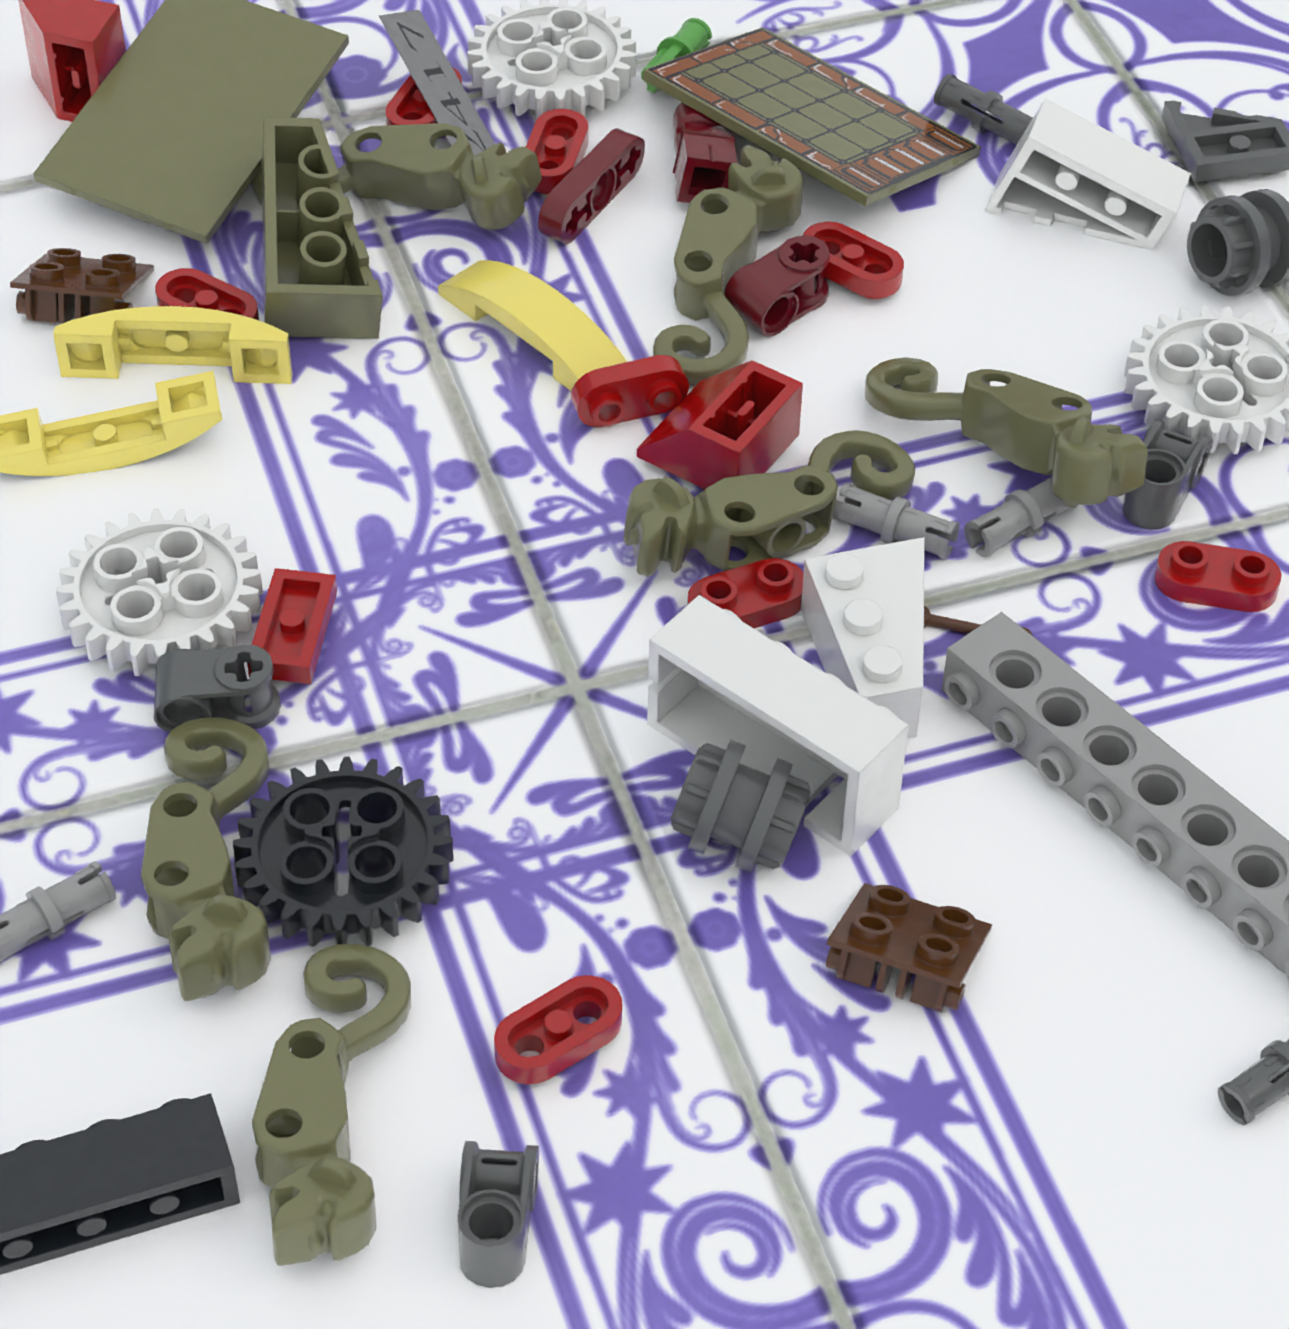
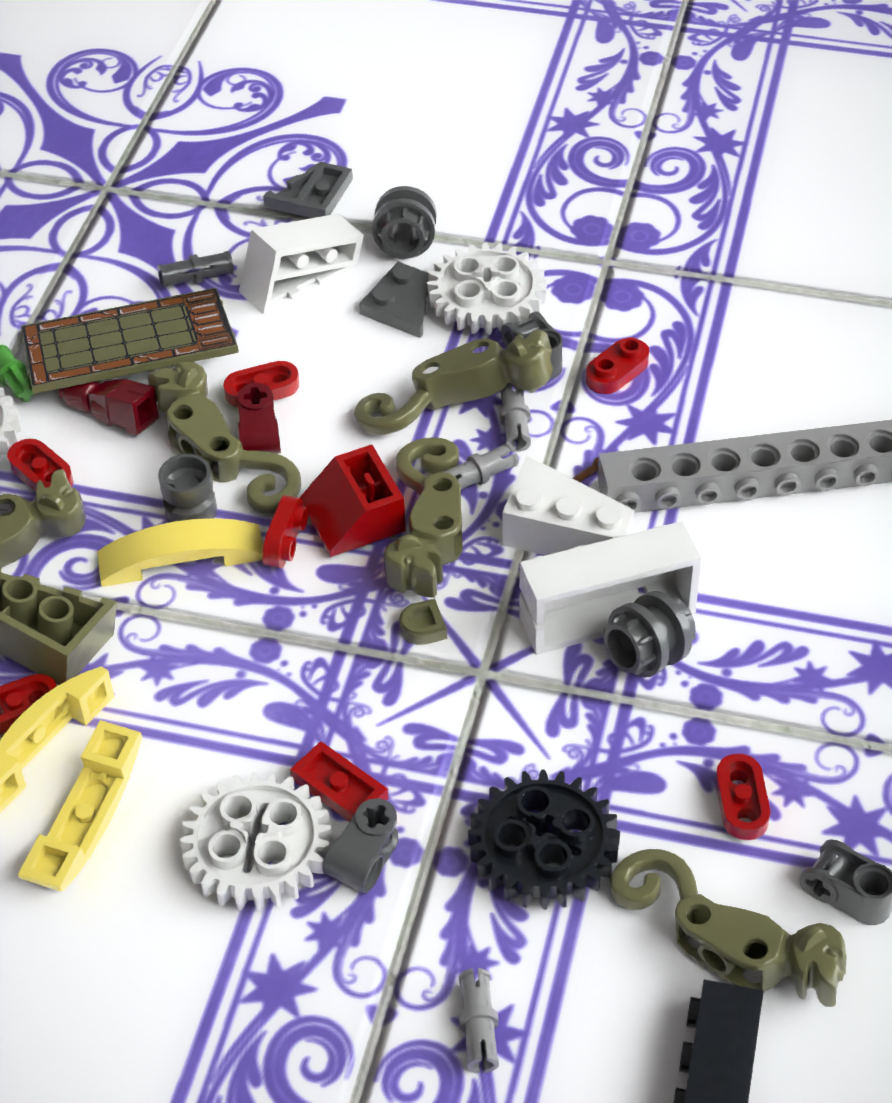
camera: 55 degrees left, 0 degrees up
(187, 864) = (505, 915): olive animal -> none
(591, 185) = (90, 466): dark red beam -> none
(604, 589) = (422, 623): none -> olive tile
(613, 276) = (187, 488): none -> dark grey wheel
(755, 592) = (484, 555): red plate -> none
(910, 936) = (783, 615): reddish brown hinge -> none
(1116, 308) = (399, 299): none -> dark grey wing

